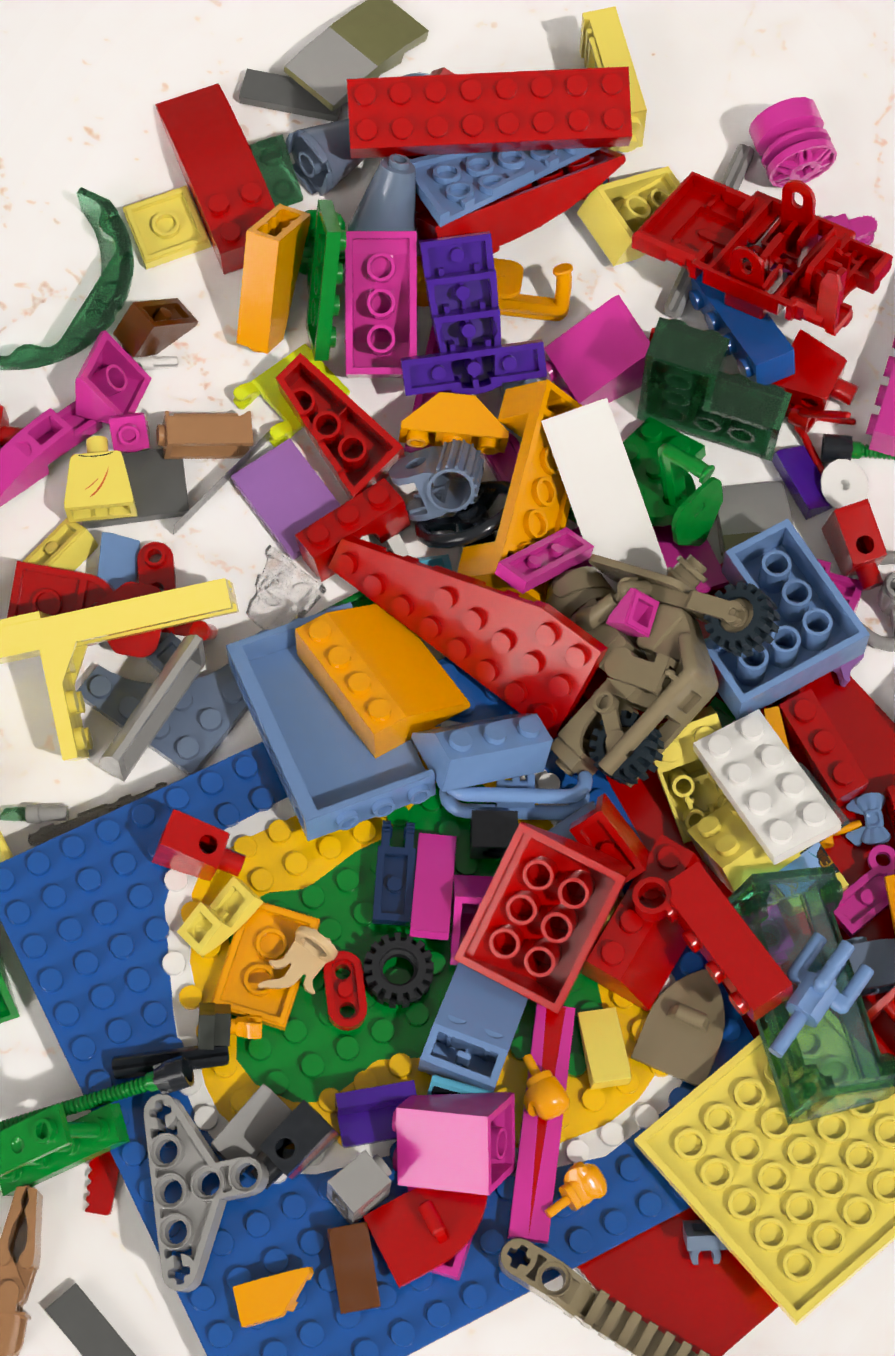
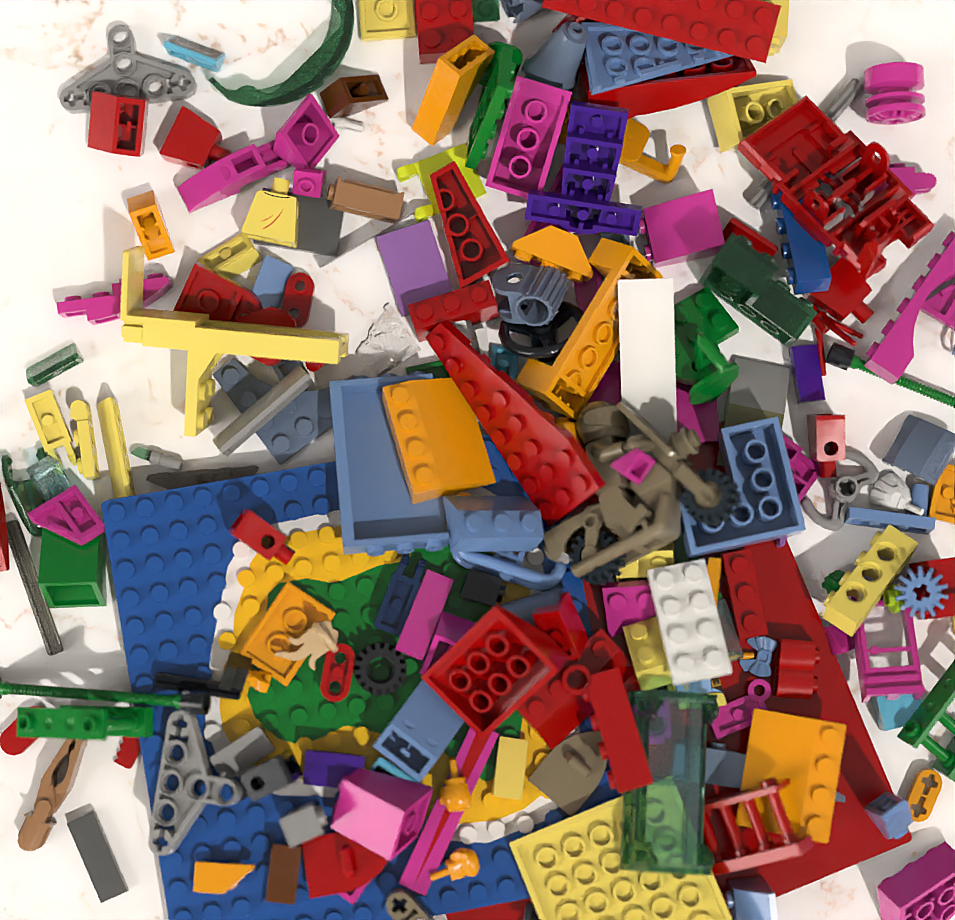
camera: 15 degrees right, 15 degrees up
(215, 923) = (264, 592): light yellow slope -> none
(544, 560) = (584, 391): dark pink plate -> none
(684, 799) = (627, 604): none -> dark pink wing
(818, 990) = (670, 787): medium blue plant -> none
(843, 483) = (835, 387): white piece -> none

